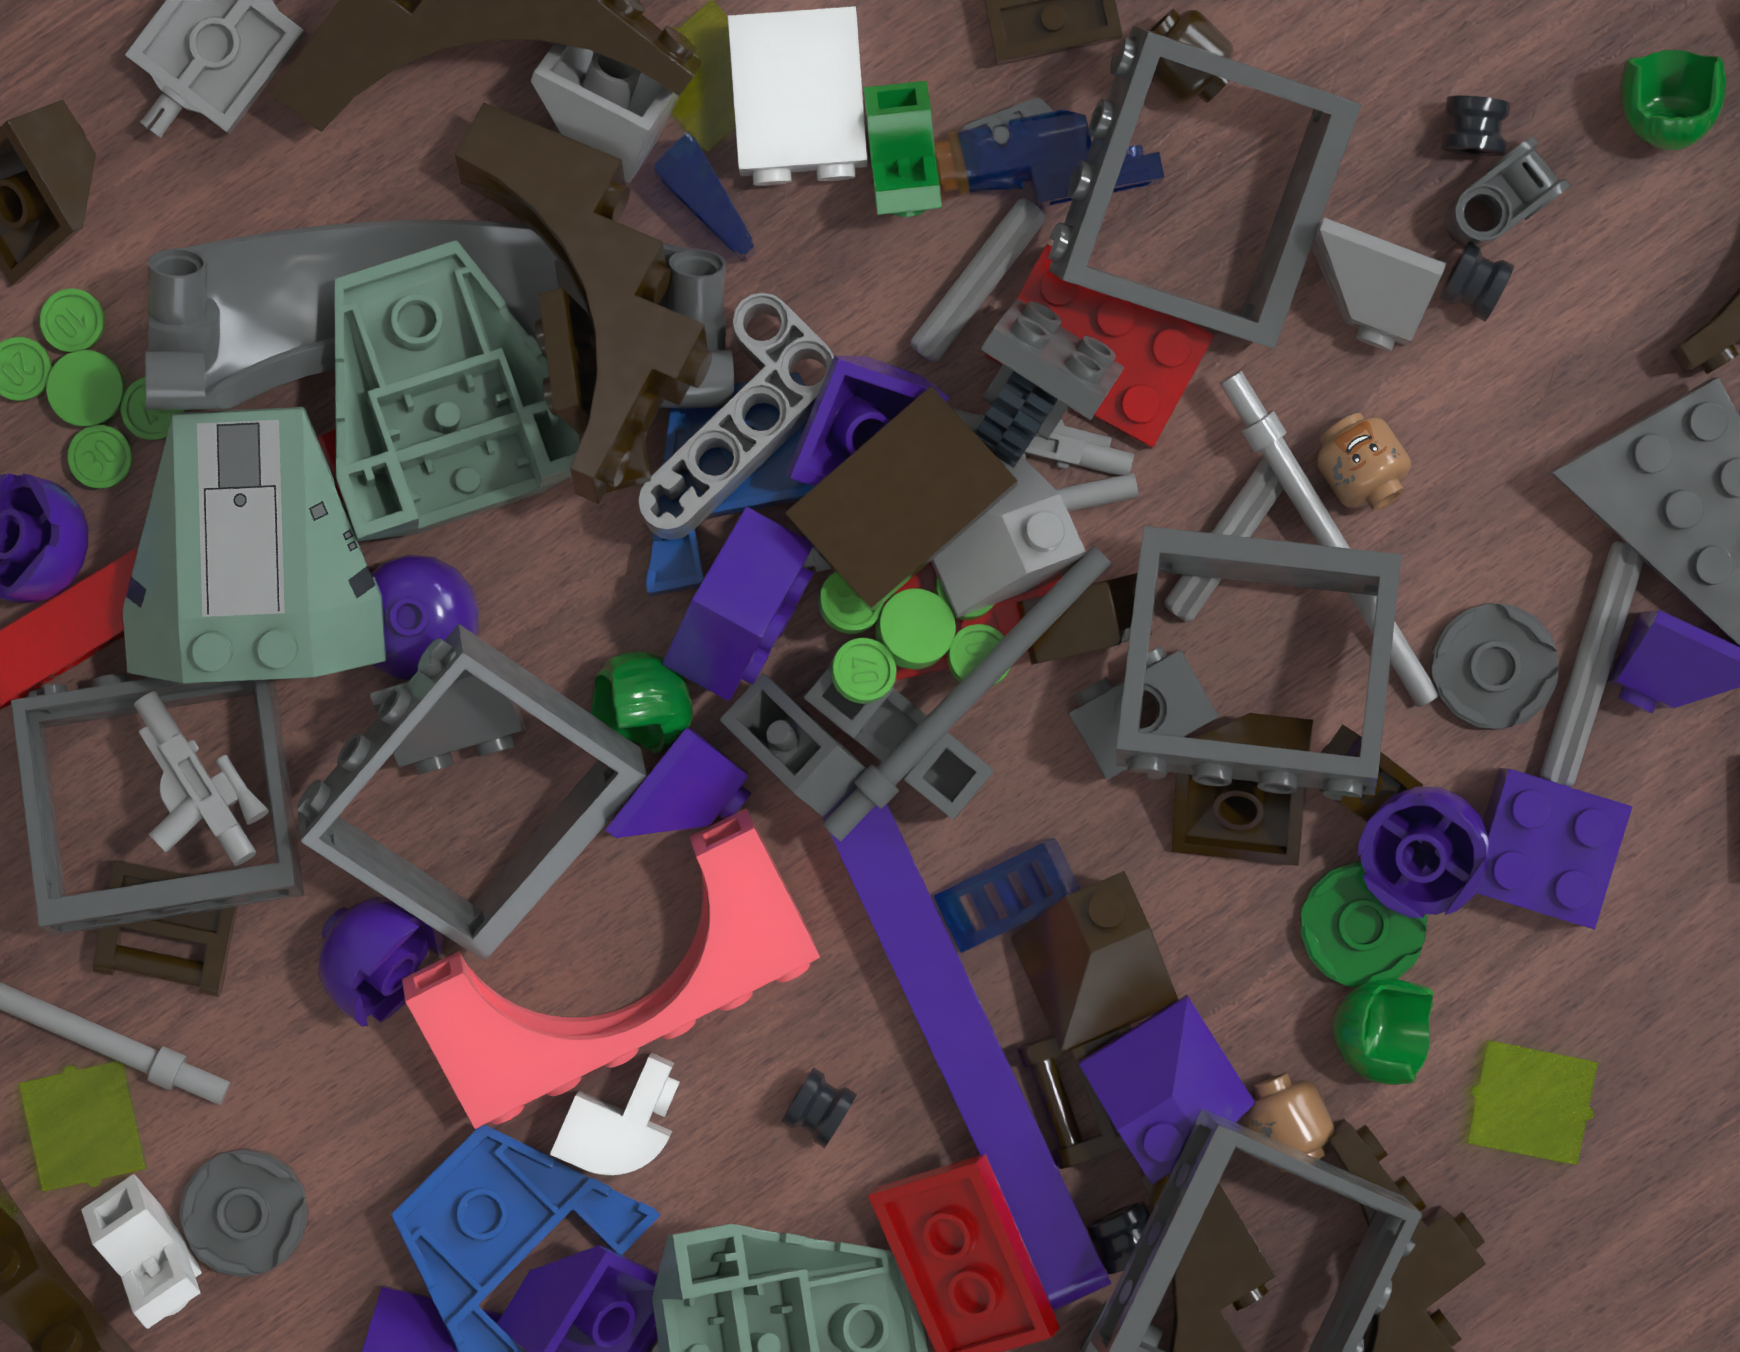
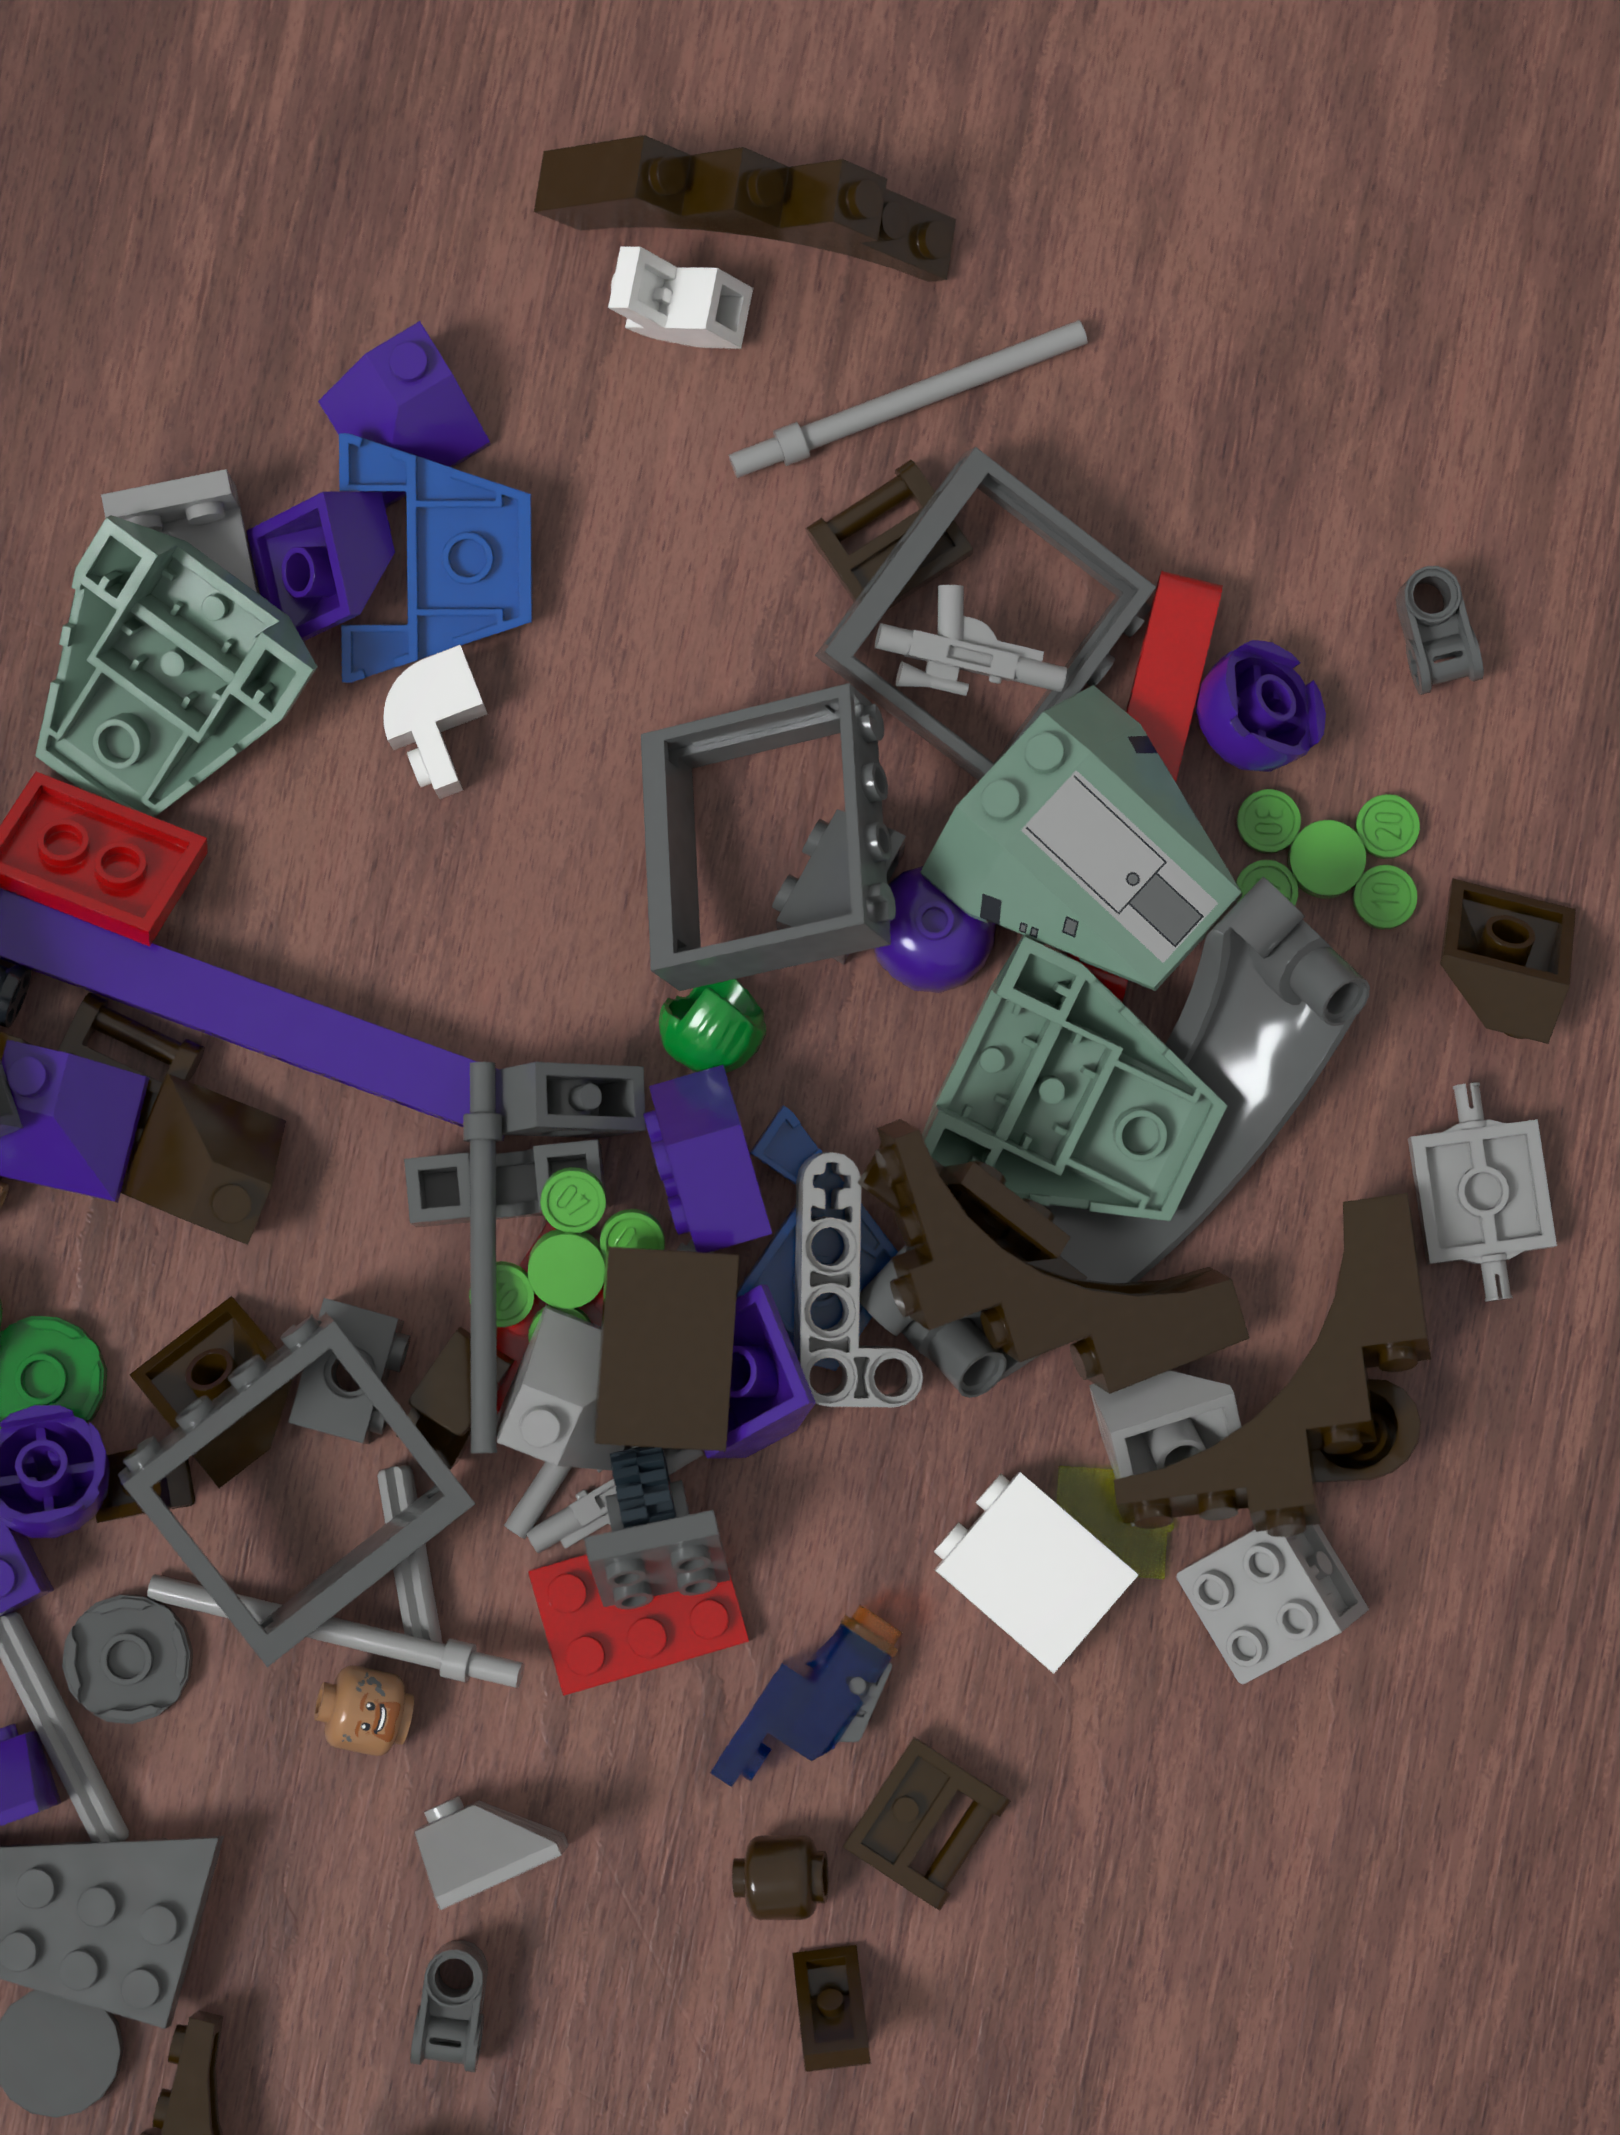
camera: 135 degrees right, 5 degrees down
(83, 1125) = (811, 348): clear neon green piece -> none
(244, 1212) = (638, 399): dark grey tile -> none
(369, 954) = (722, 659): dark purple cylinder -> none
(511, 1055) = (557, 687): coral arch -> none
(684, 790) = (618, 992): dark purple slope -> none
(695, 184) = (1044, 1433): clear blue slope -> none
(818, 1107) = (303, 866): black wheel -> none
(902, 148) = (918, 1604): green brick -> none
(978, 280) = (772, 1566): light grey axle -> none
(1055, 869) = (298, 1198): clear blue slope -> none
(1294, 222) = (586, 1838): dark grey window -> none
(1475, 125) = (523, 2038): black wheel -> none
(1476, 282) = (411, 1924): black wheel -> none

